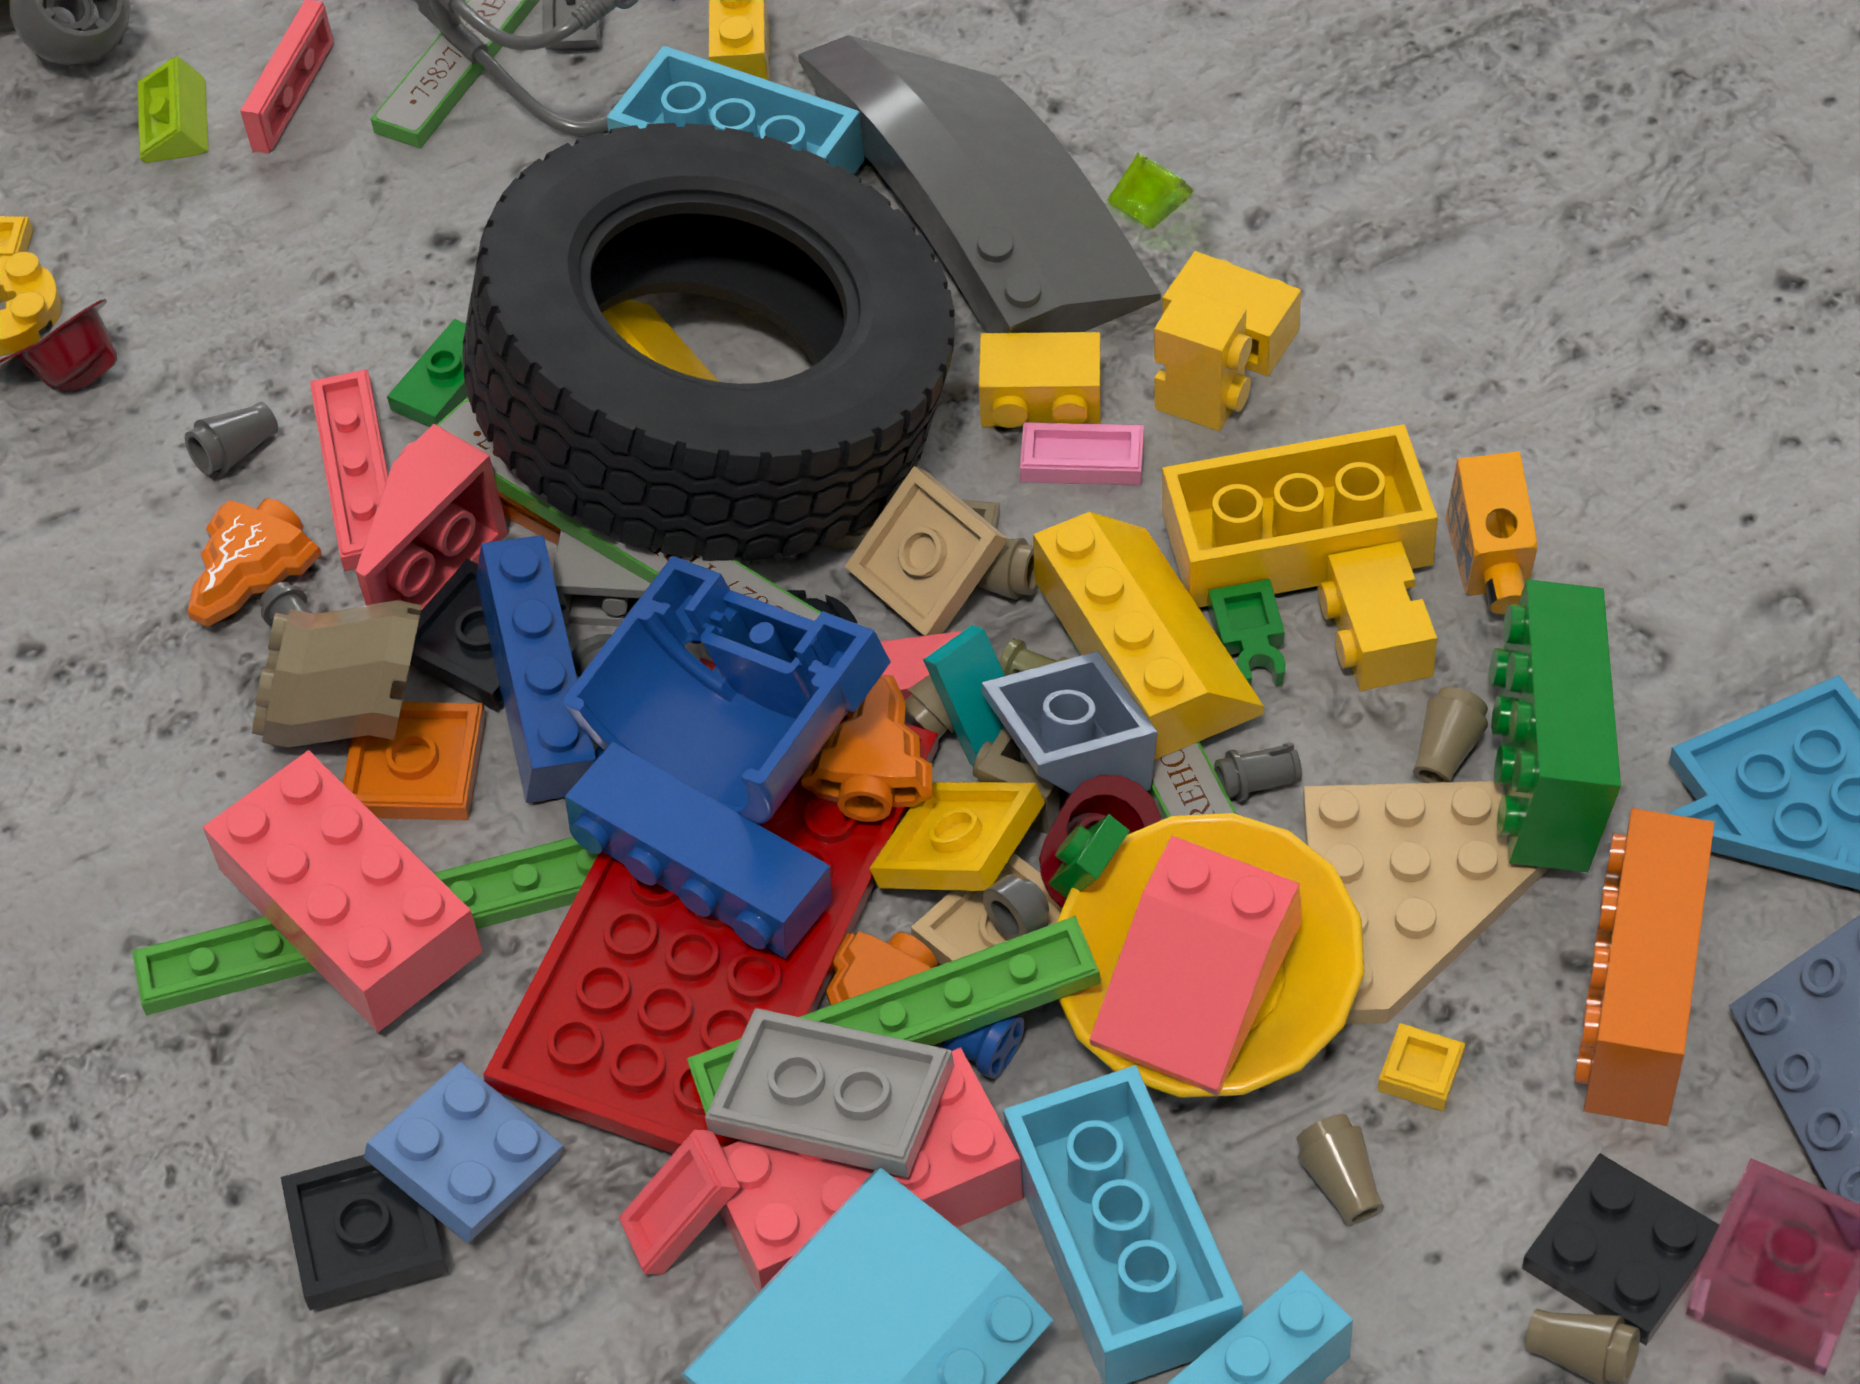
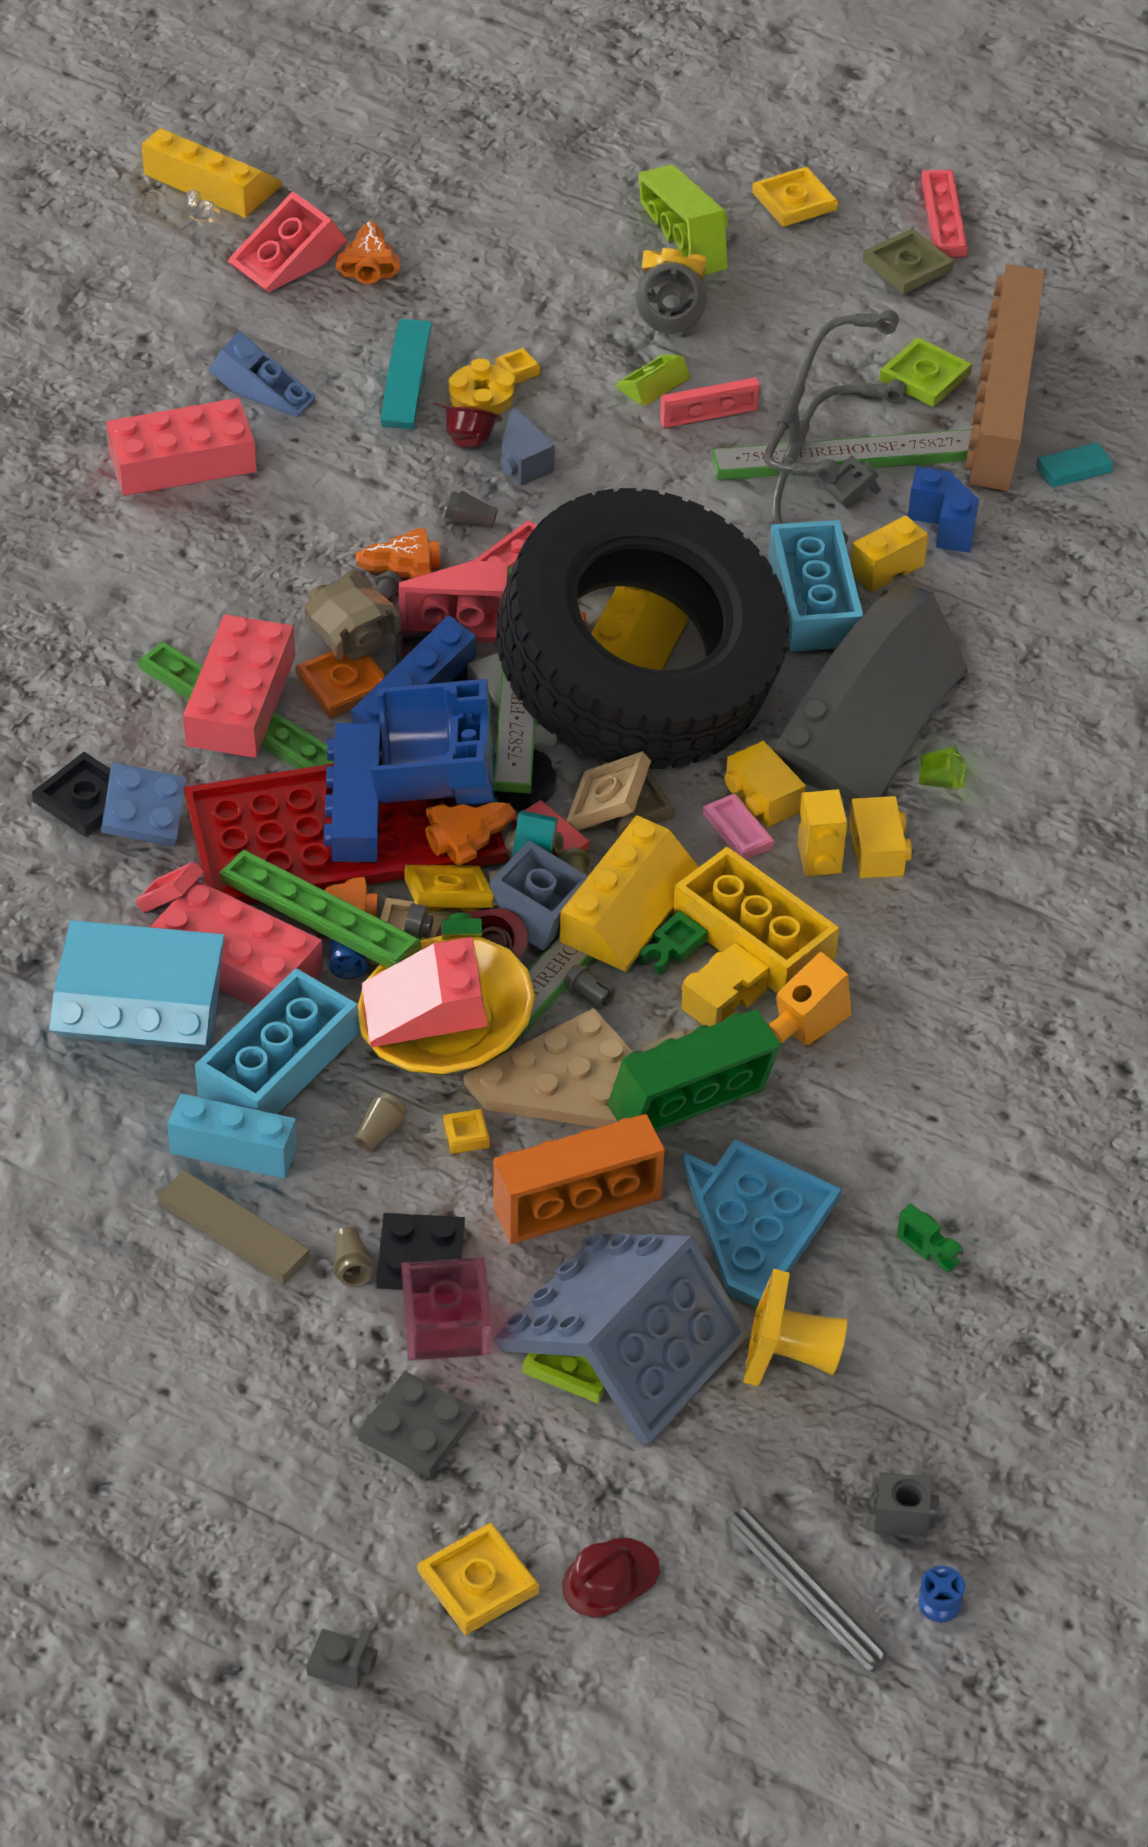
camera: 50 degrees right, 5 degrees down
(173, 313) = (525, 450): none -> sand blue slope
(830, 1092) = (255, 900): light grey tile -> none

